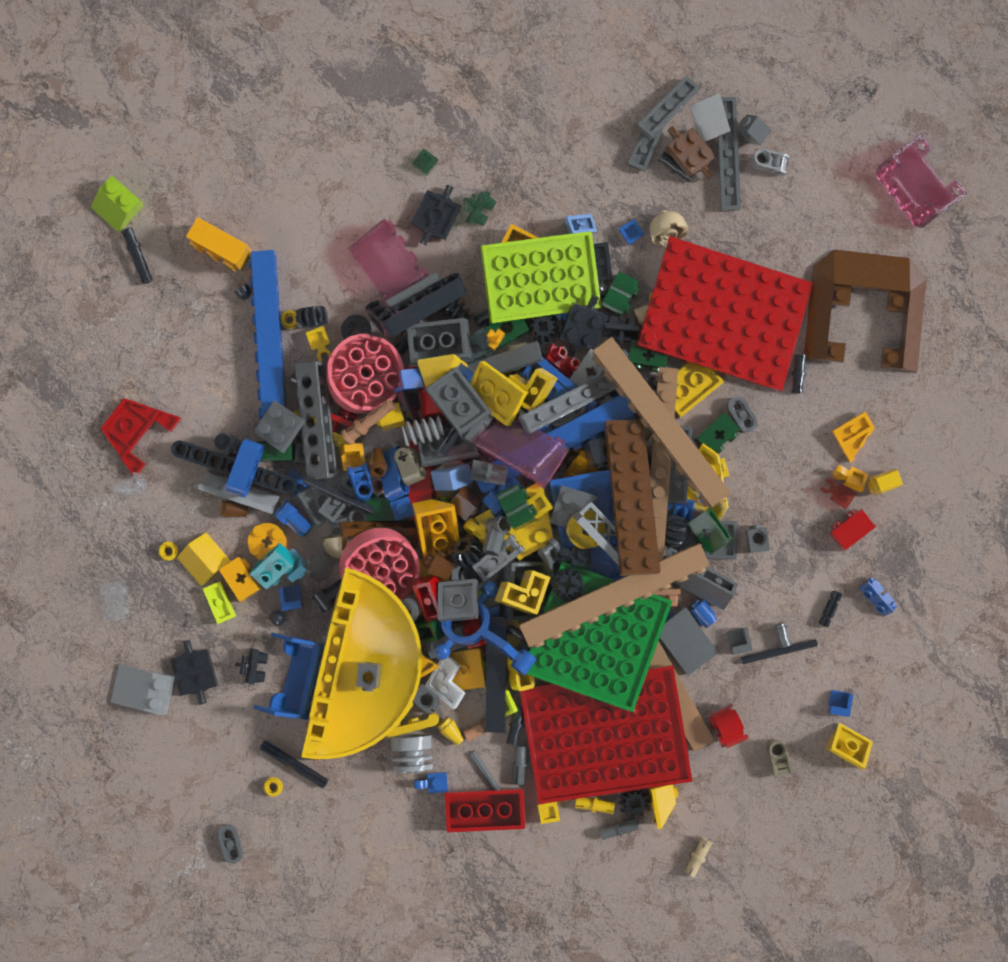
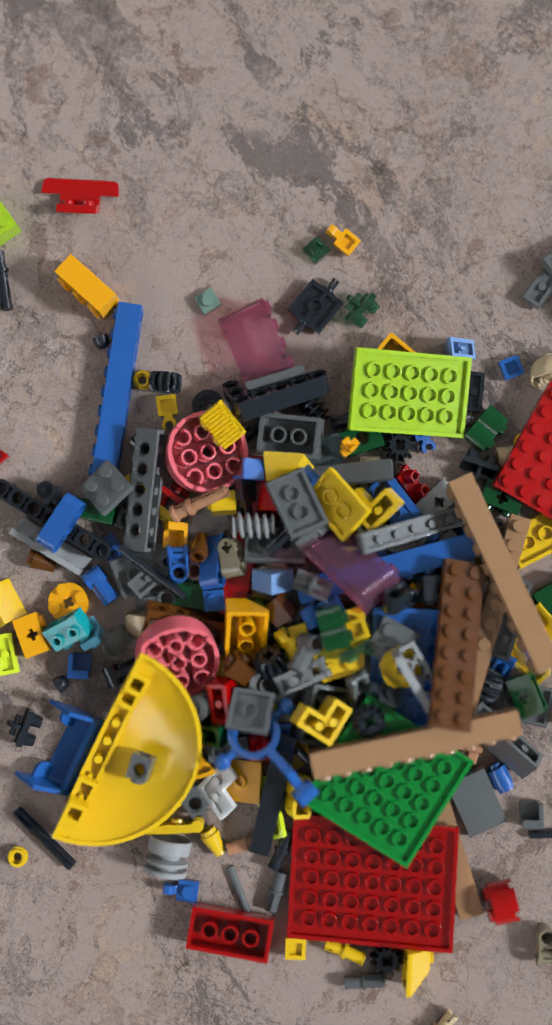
camera: 10 degrees right, 0 degrees up
(191, 159) = (79, 194): none -> red plate
(334, 232) = (208, 301): none -> sand green plate
(373, 344) = (222, 425): none -> yellow brick
(450, 147) = (345, 241): none -> light orange plate
(537, 528) = (351, 654): none -> clear green plate
(571, 466) = (399, 598): none -> black piece
(582, 326) = (441, 453): black plate -> none

